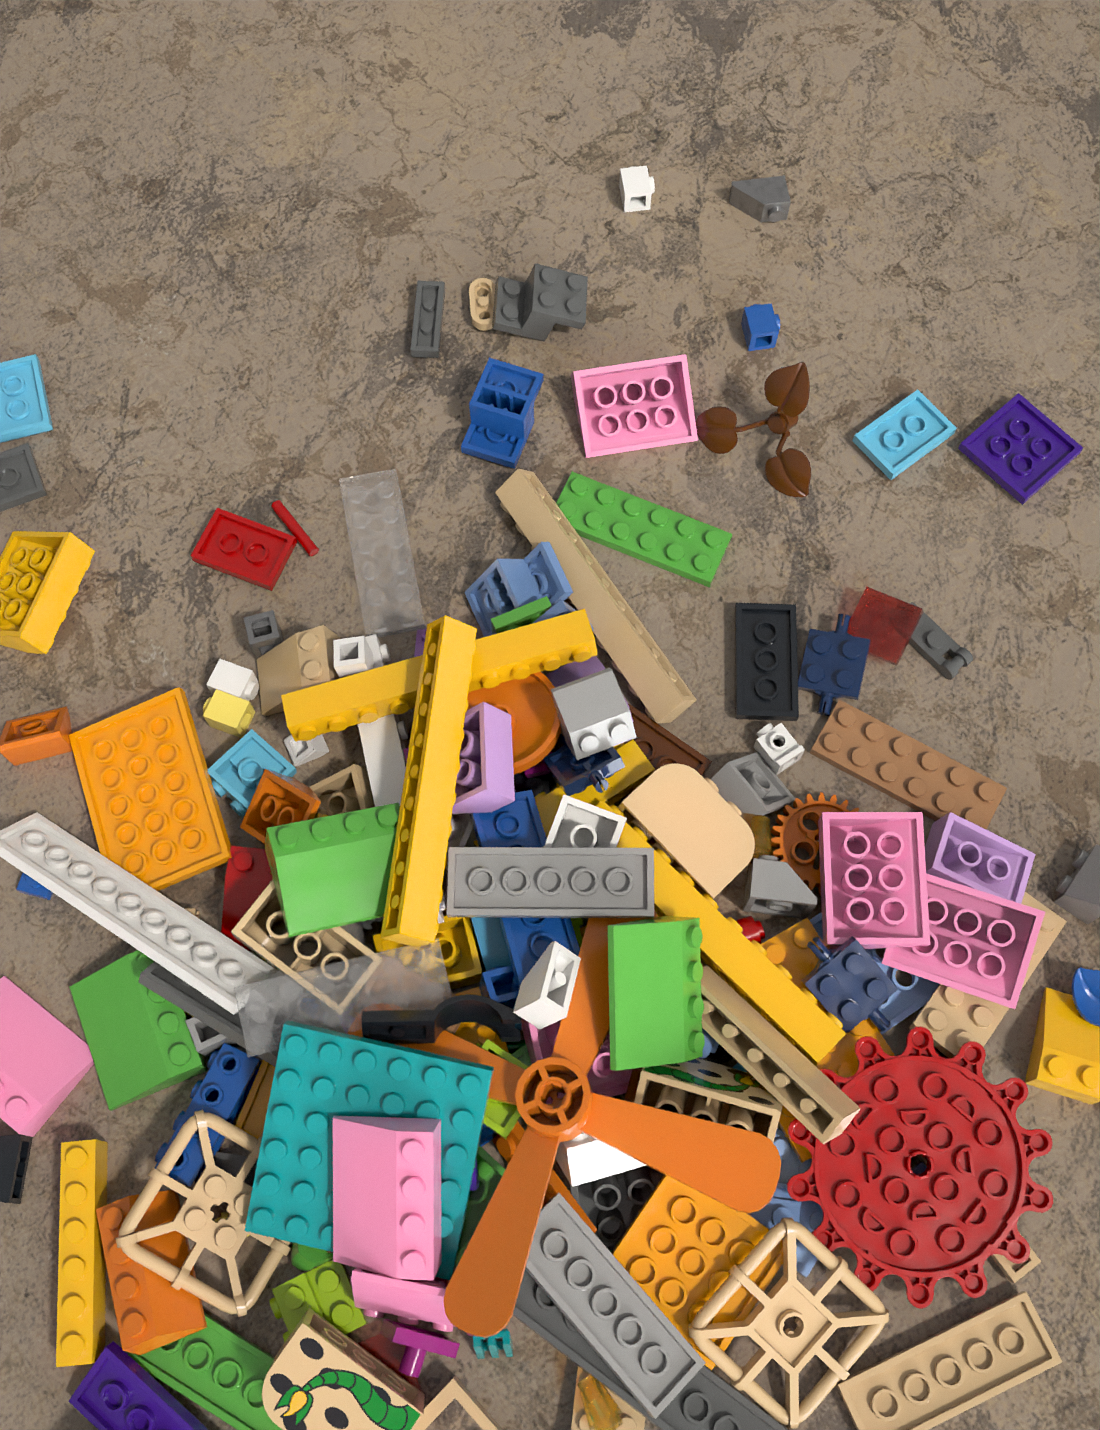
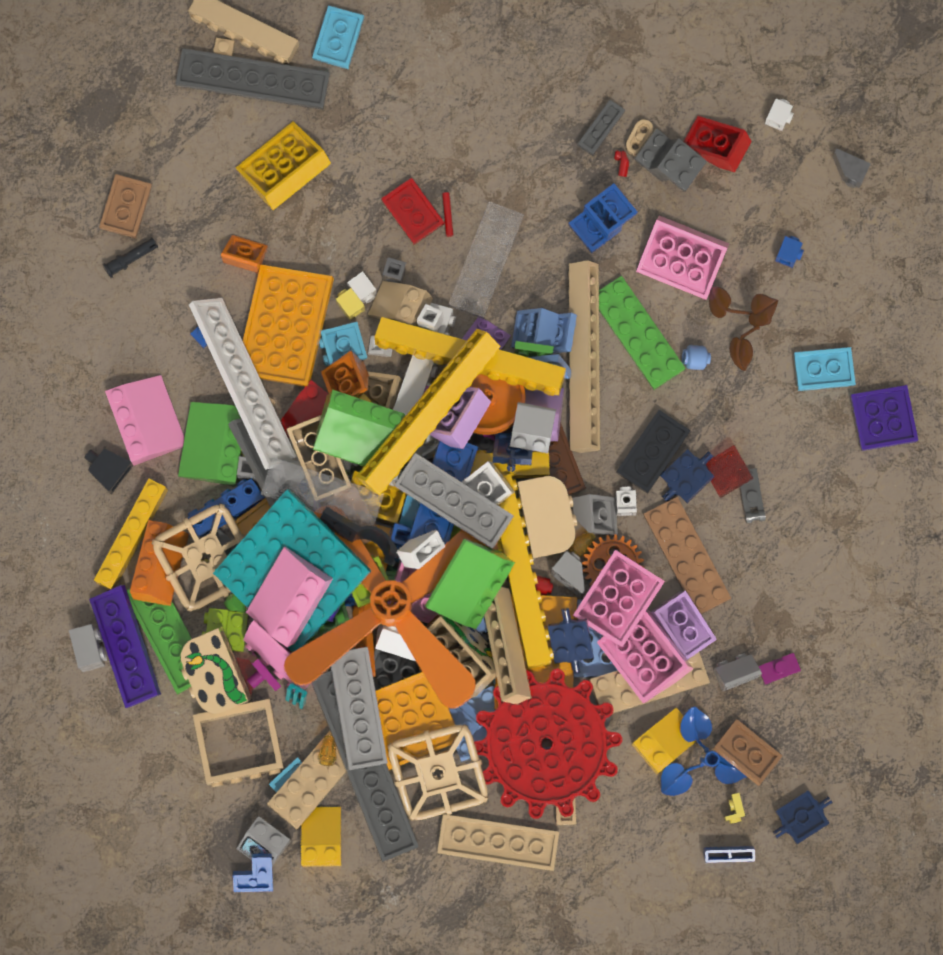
camera: 30 degrees right, 10 degrees up
(482, 340) = (624, 162): none -> red arm
(590, 251) = (718, 143): none -> red slope
(736, 512) = (696, 357): none -> medium blue head

